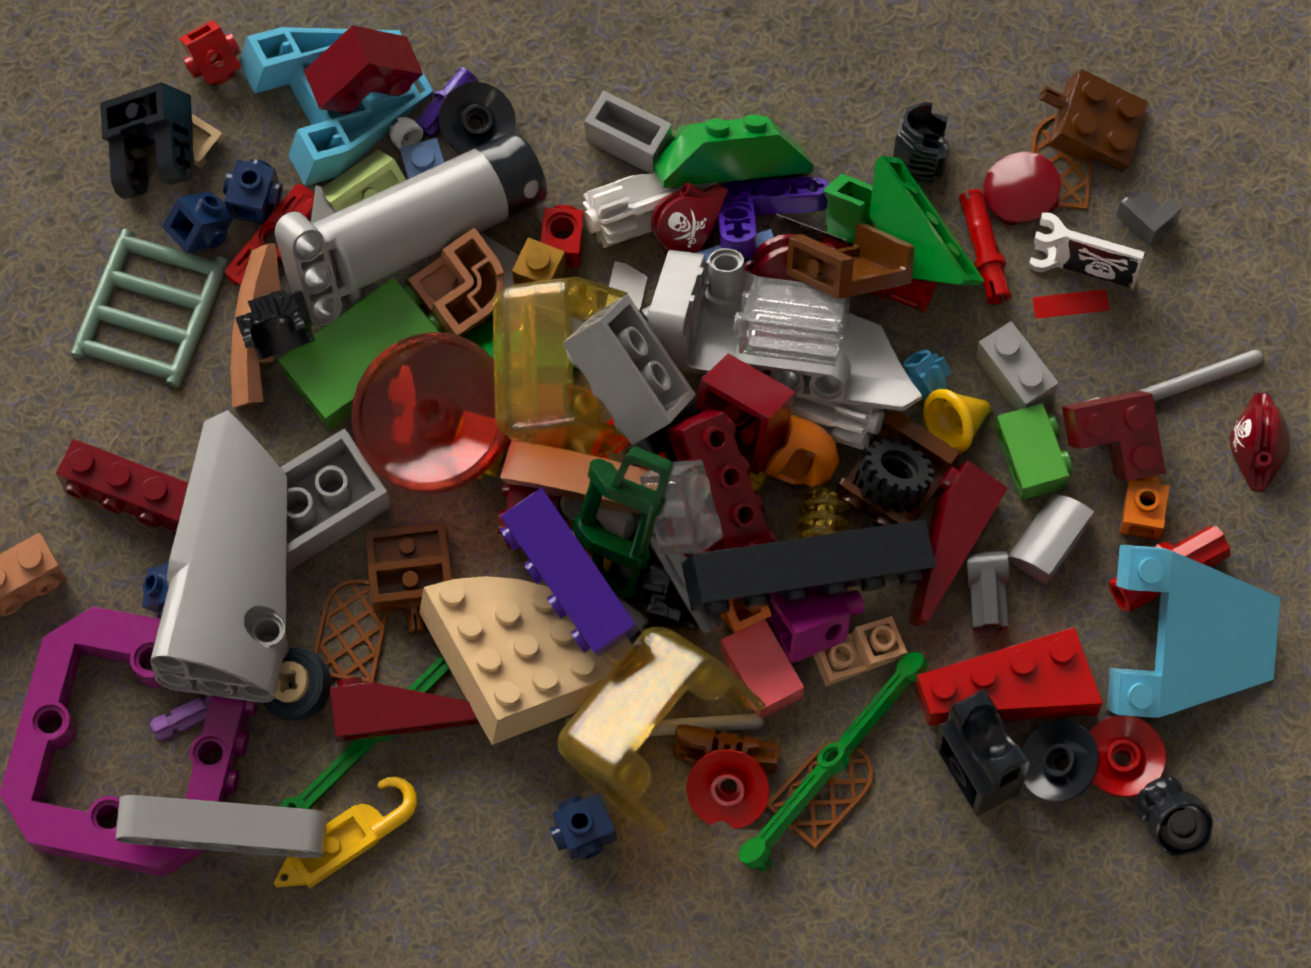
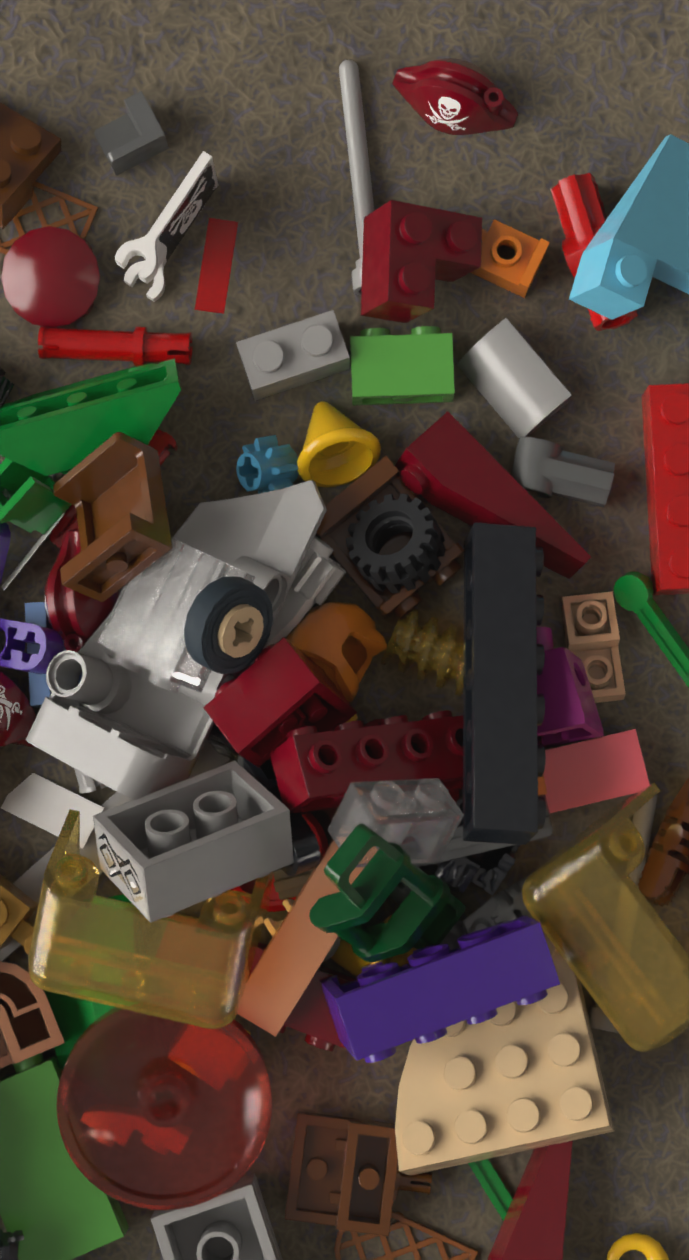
camera: 75 degrees left, 15 degrees up
(799, 335) = (228, 624): none -> black wheel

